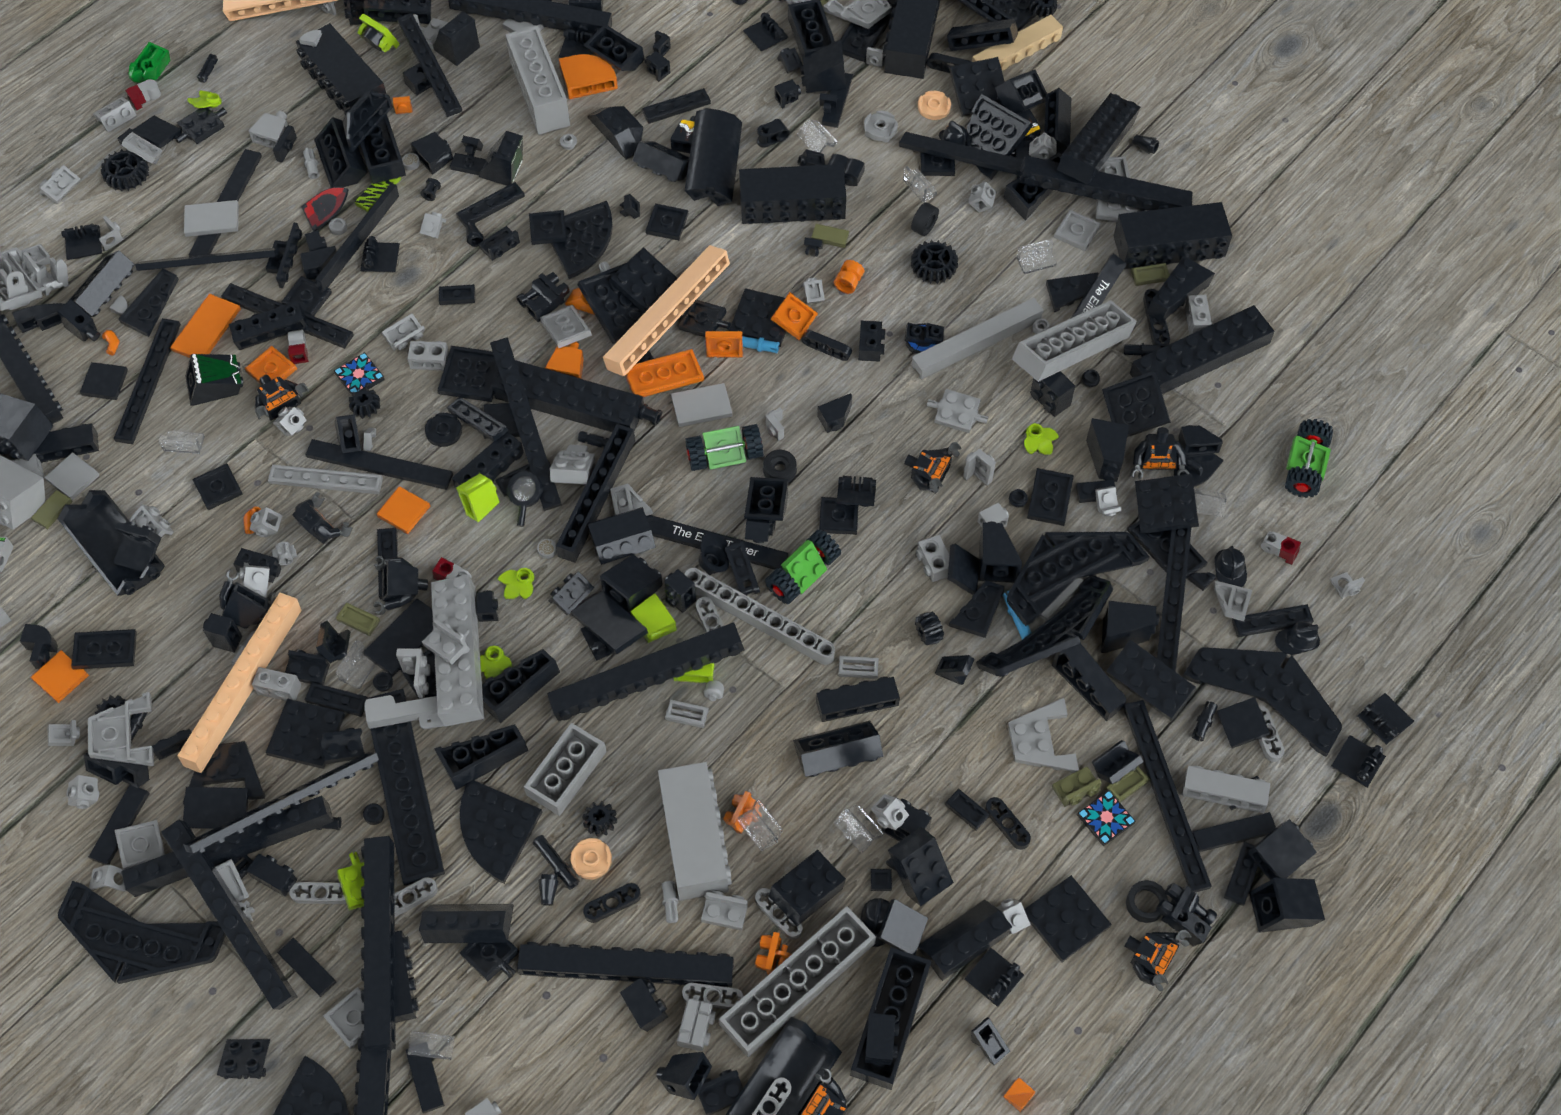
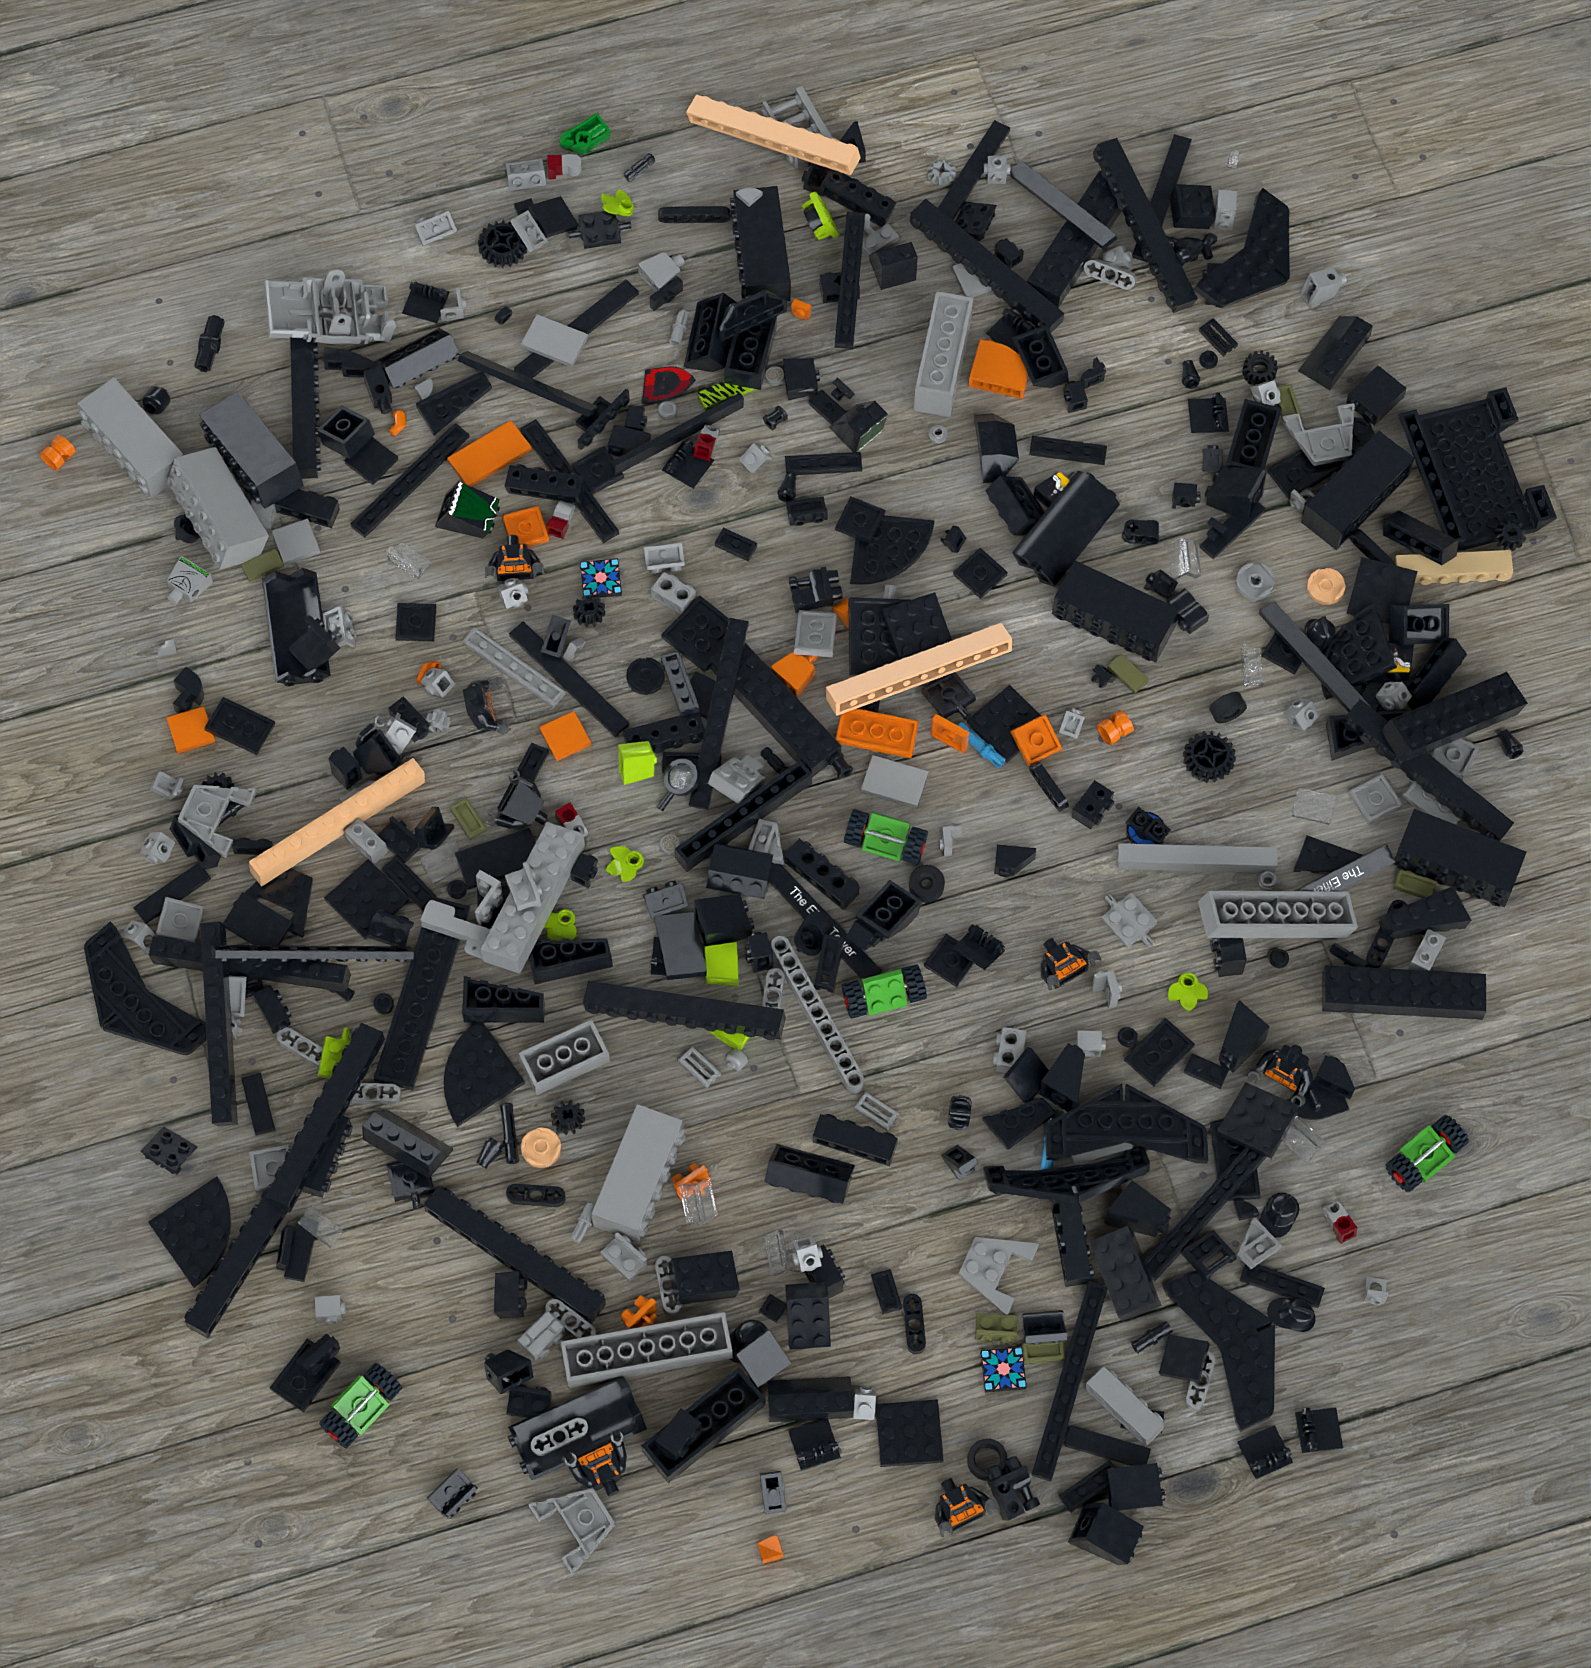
camera: 30 degrees right, 5 degrees up
(68, 367) = (345, 432): none -> black brick
(156, 220) = (503, 315): none -> black tile
(251, 90) = (694, 214): none -> black beam
(386, 232) = (706, 442): none -> dark red leg
(408, 1084) = (284, 1247): none -> black tile
(697, 511) = (824, 883): none -> black brick
(734, 13) = (1190, 376): none -> black cone
(1107, 501) = (1207, 1086): light grey bracket -> none
(1137, 403) = (1298, 1009): black plate -> none
(1197, 626) = (1204, 1250): none -> black plate

